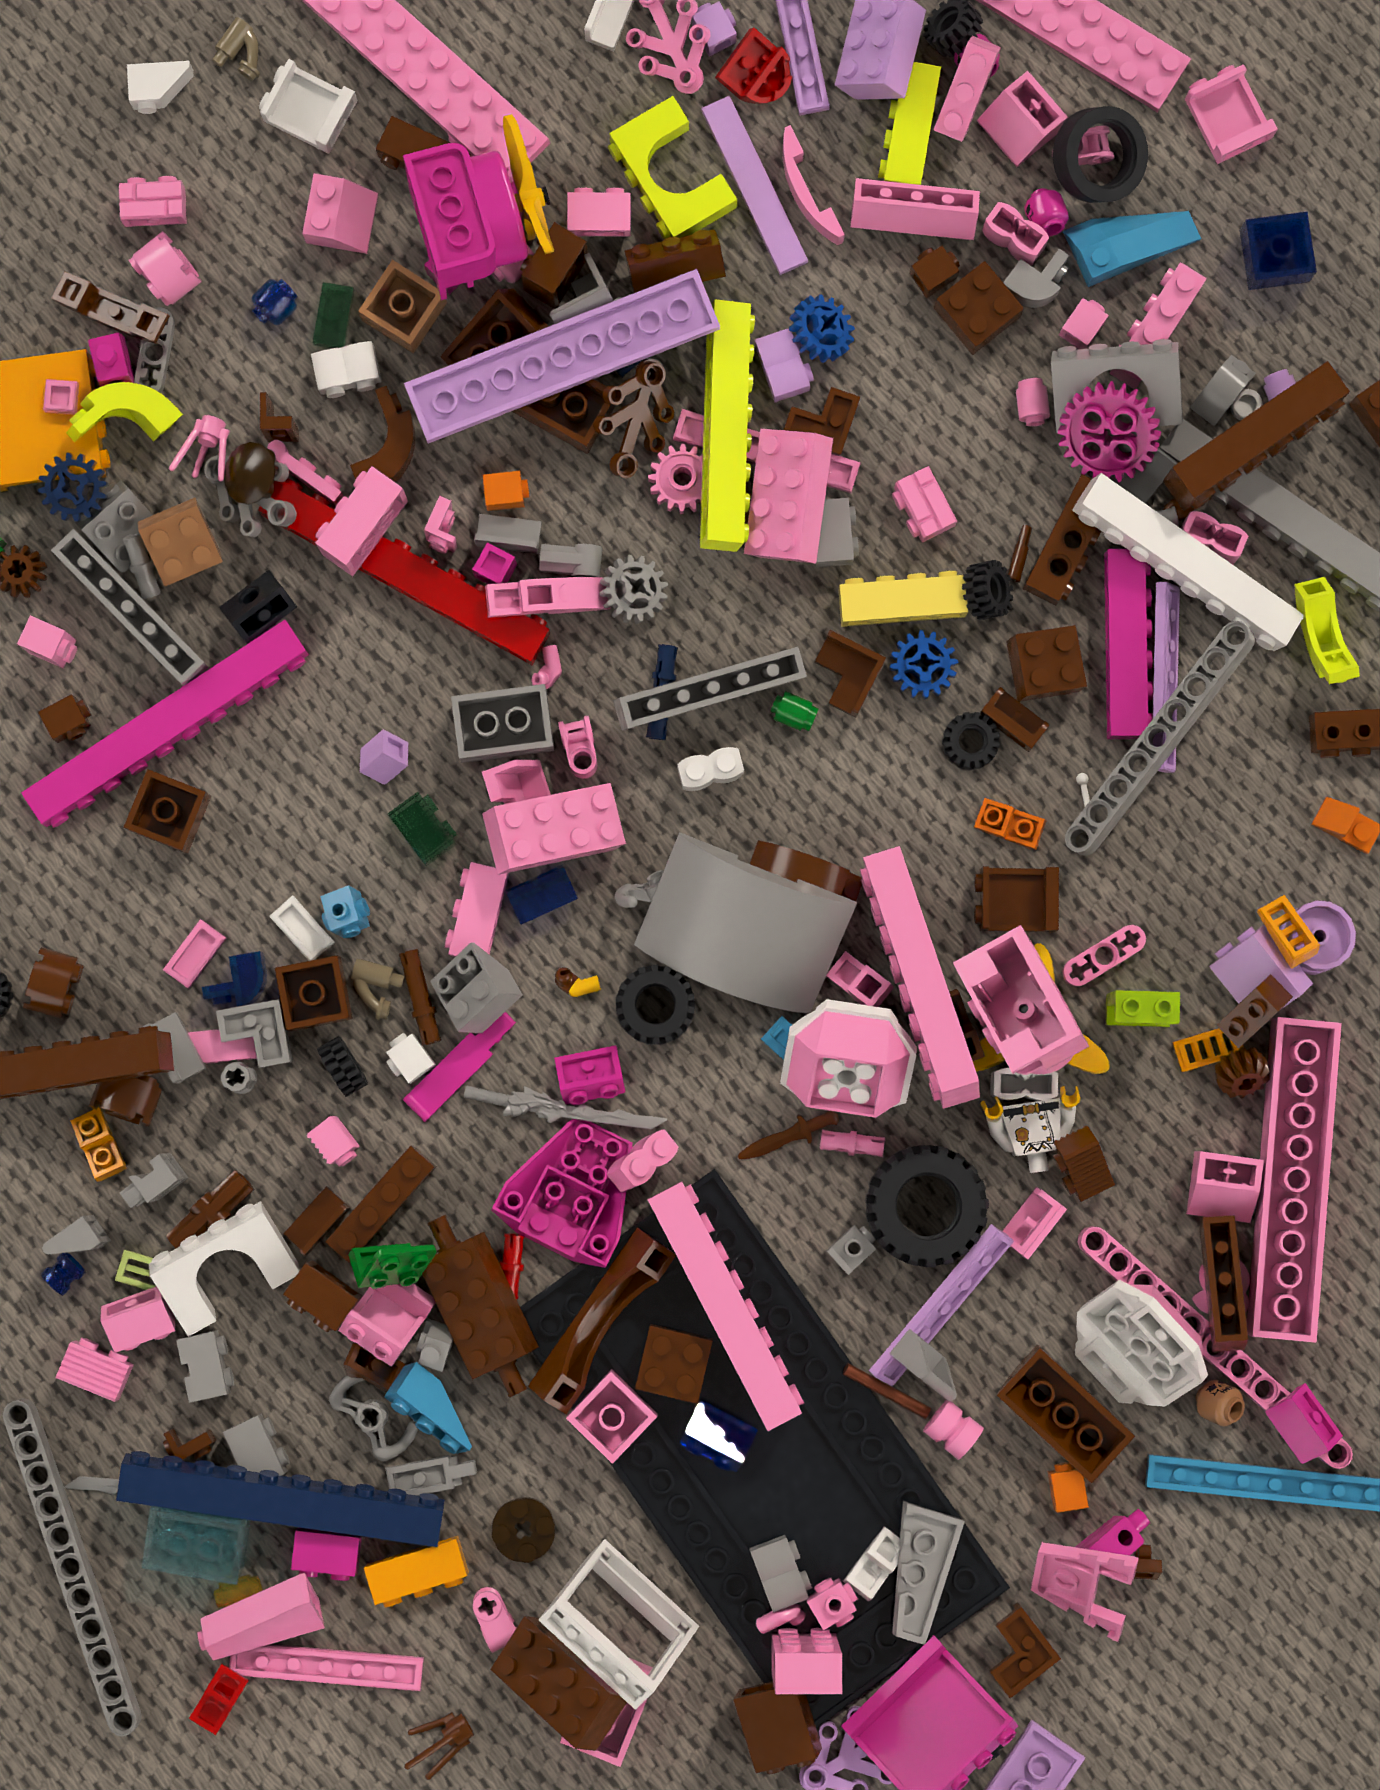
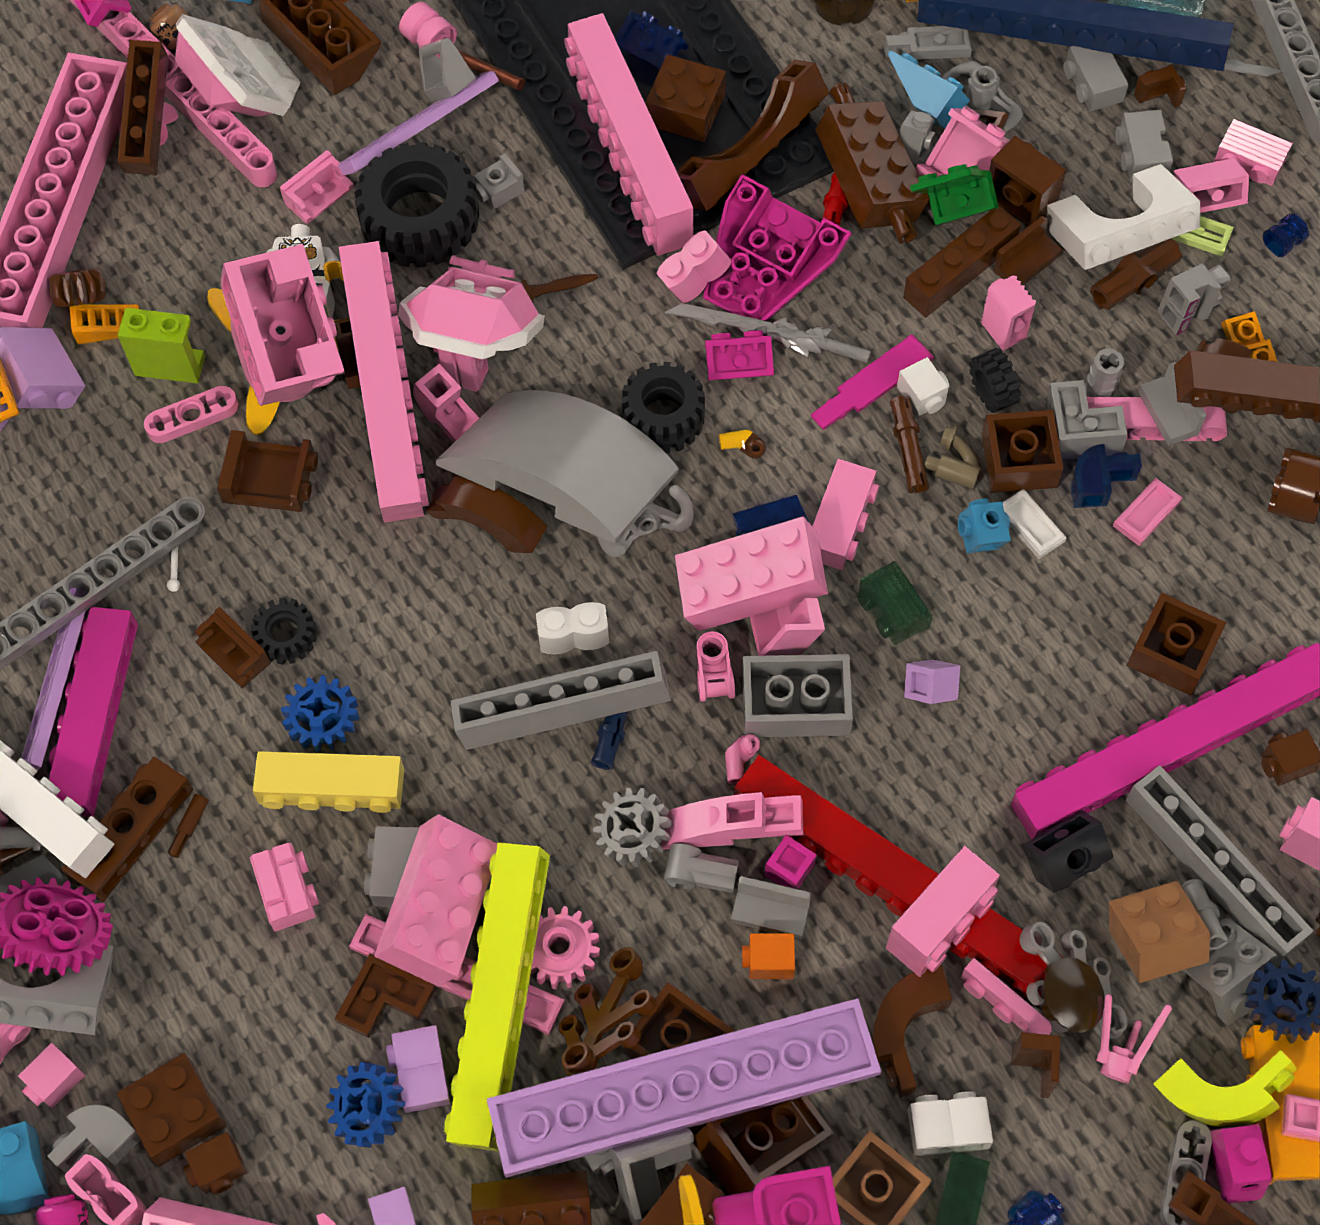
camera: 170 degrees left, 20 degrees down
(79, 1236) = (1261, 249): light grey tile -> none
(439, 526) = (850, 913): bright pink bracket -> none
(475, 989) = (850, 433): light grey slope -> none
(612, 1416) = (751, 57): bright pink brick -> none
(777, 1037) = (536, 372): dark azure tile -> none
(794, 711) = (469, 677): green brick -> none
(856, 666) = (393, 710): reddish brown panel -> none
(987, 589) = (231, 777): black tyre -> none
(1010, 824) = (259, 548): orange slope -> none
(1032, 402) = (133, 991): bright pink brick -> none
(1046, 663) = (183, 696): reddish brown brick -> none
(1083, 1163) = (256, 221): reddish brown brick -> none
(1224, 1186) = (119, 201): bright pink slope -> none
(1254, 1011) = (47, 325): reddish brown brick -> none

